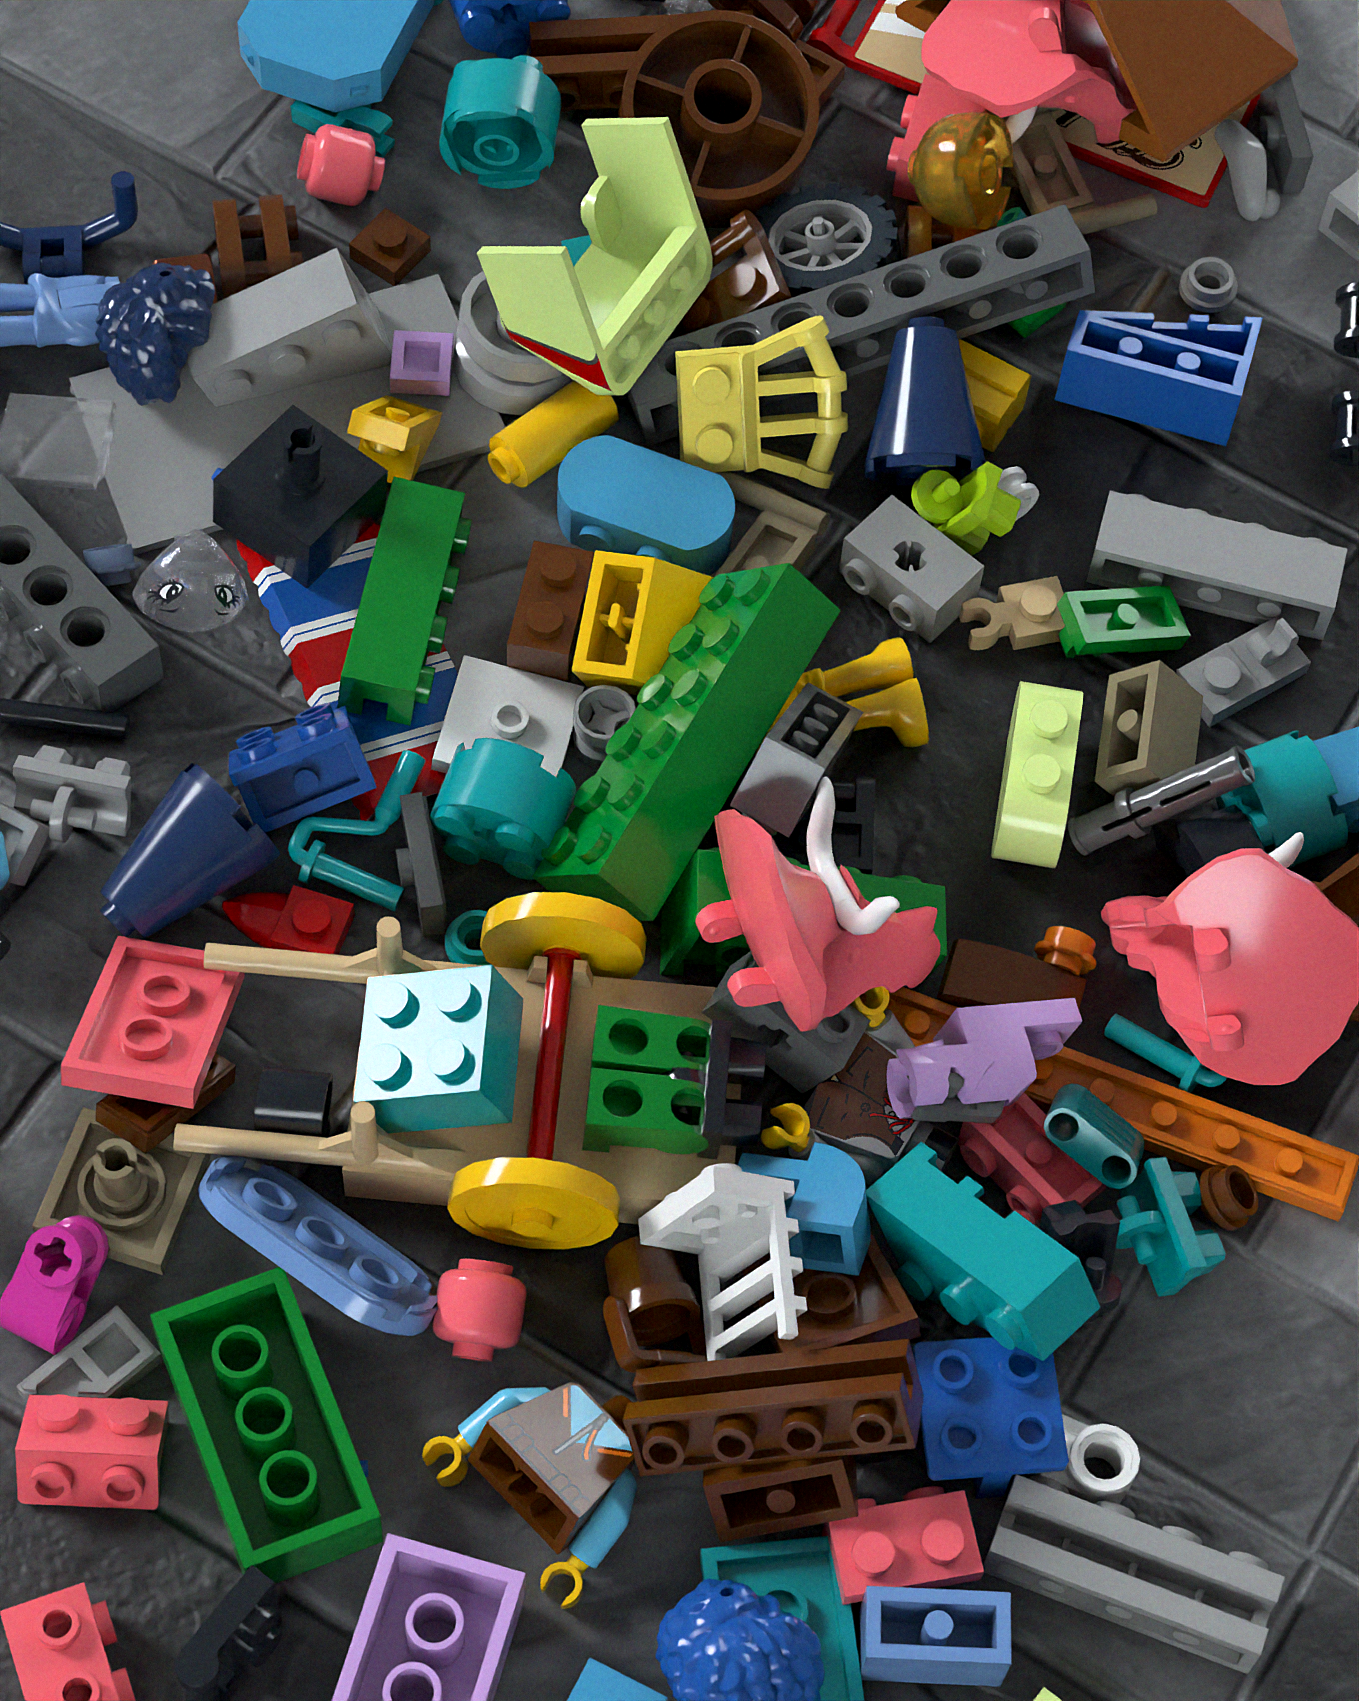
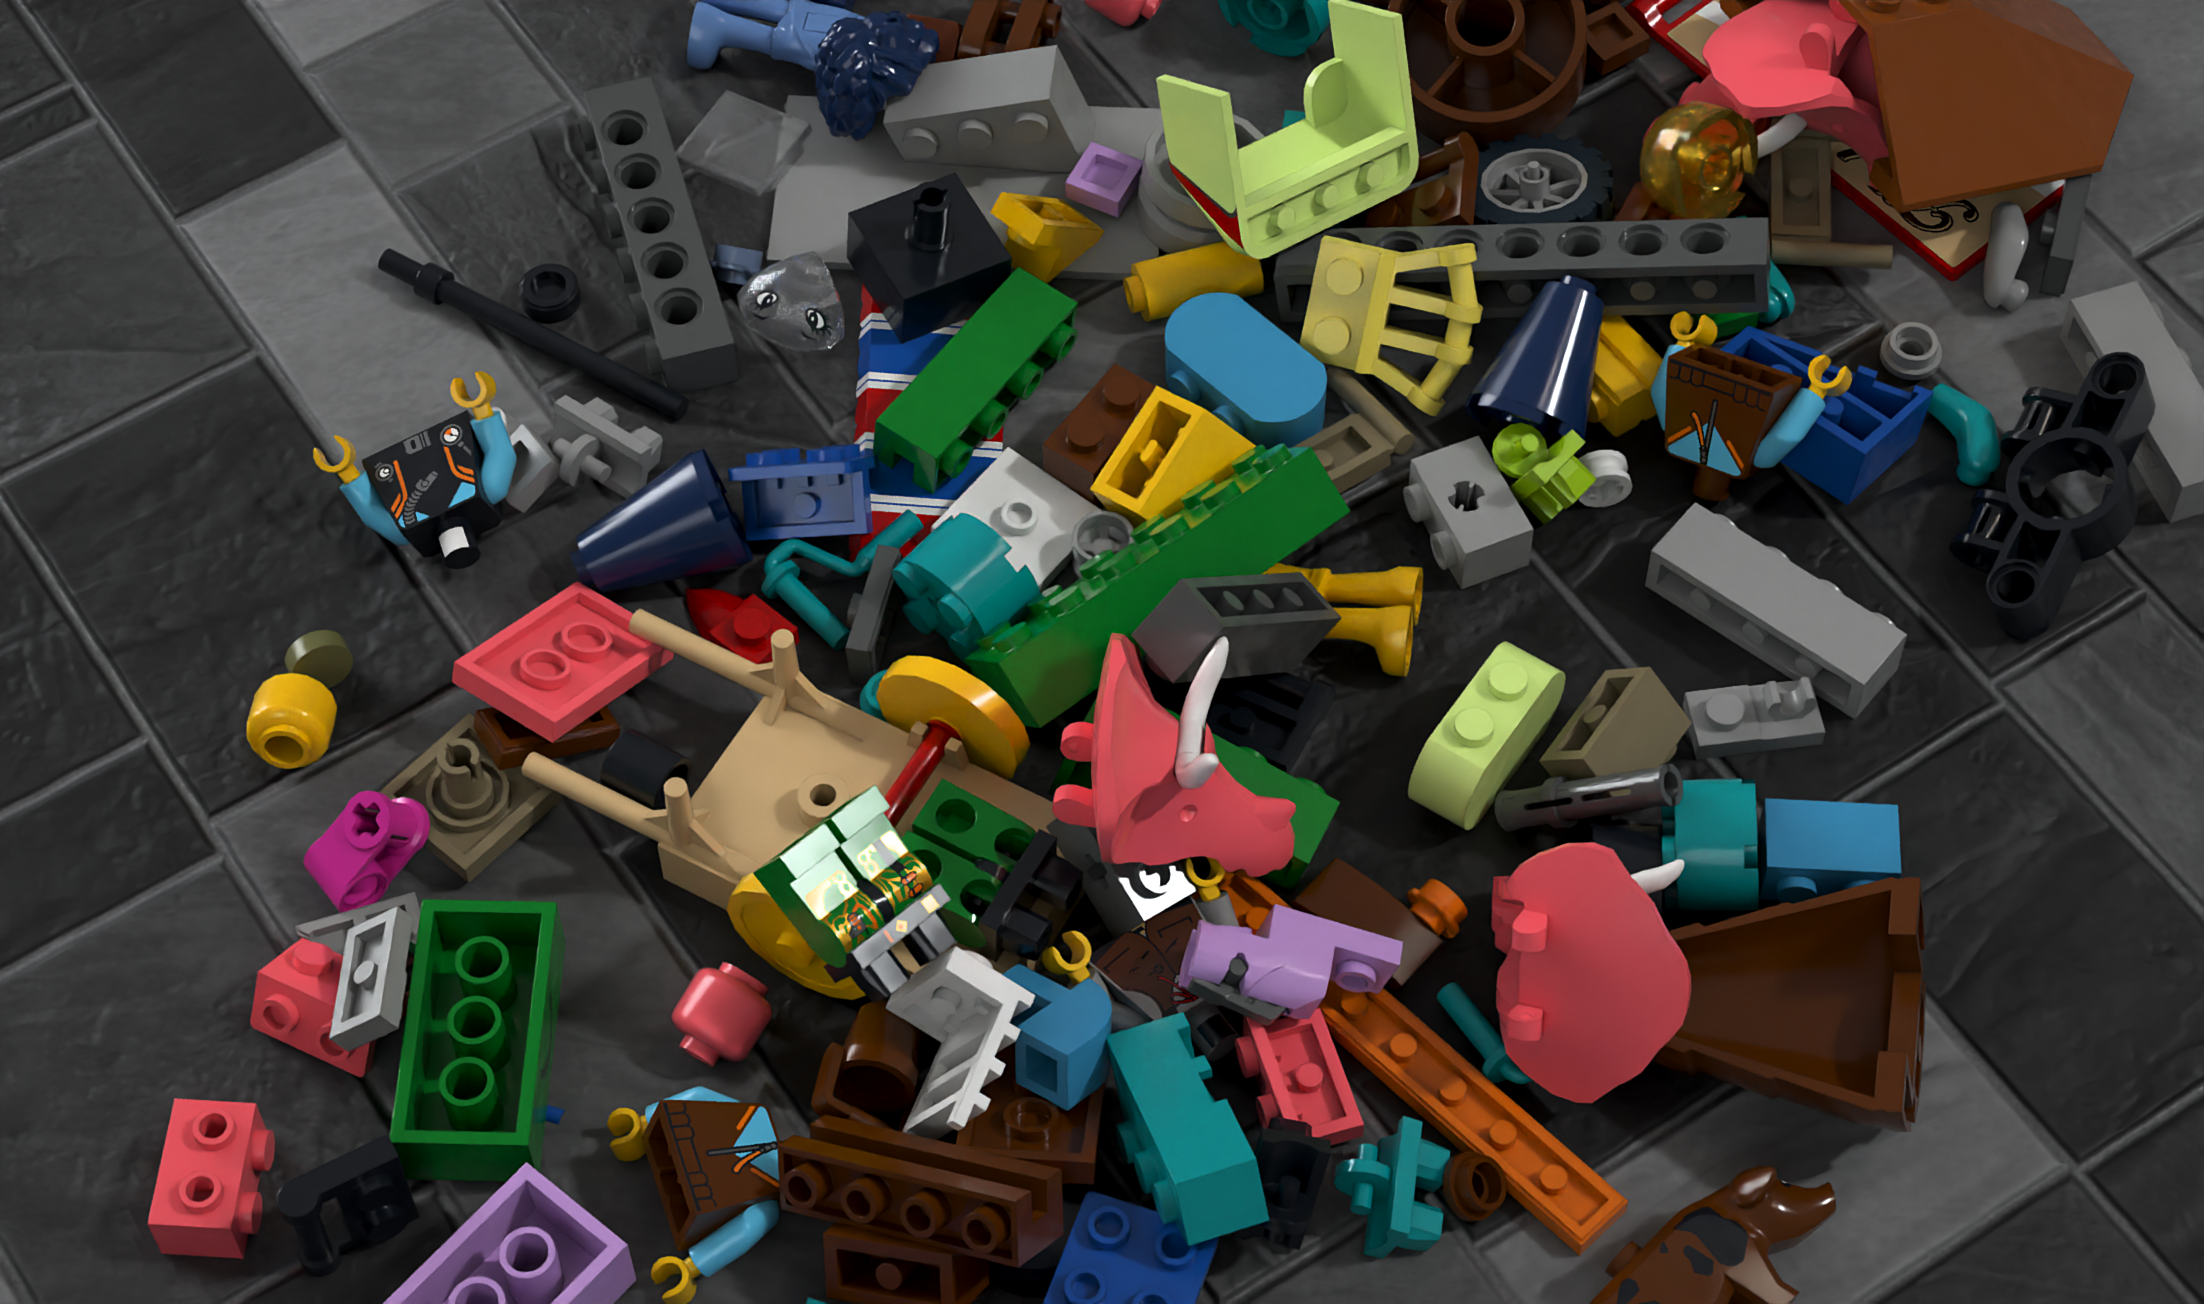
camera: 30 degrees right, 5 degrees down
(142, 1413) = (373, 979): none -> light grey plate
(319, 1245) = (605, 903): medium blue tile -> none
(389, 247) = (1133, 70): reddish brown plate -> none
(439, 1049) = (780, 762): brick -> none
(595, 1151) = (857, 894): none -> hips
(1022, 612) = (1568, 593): tan plate -> none
(1094, 1136) = (1366, 1078): teal piece -> none
(1102, 395) = (1731, 410): none -> torso
(1121, 621) = (1651, 627): green plate -> none
(1300, 343) = (1974, 432): none -> teal arm

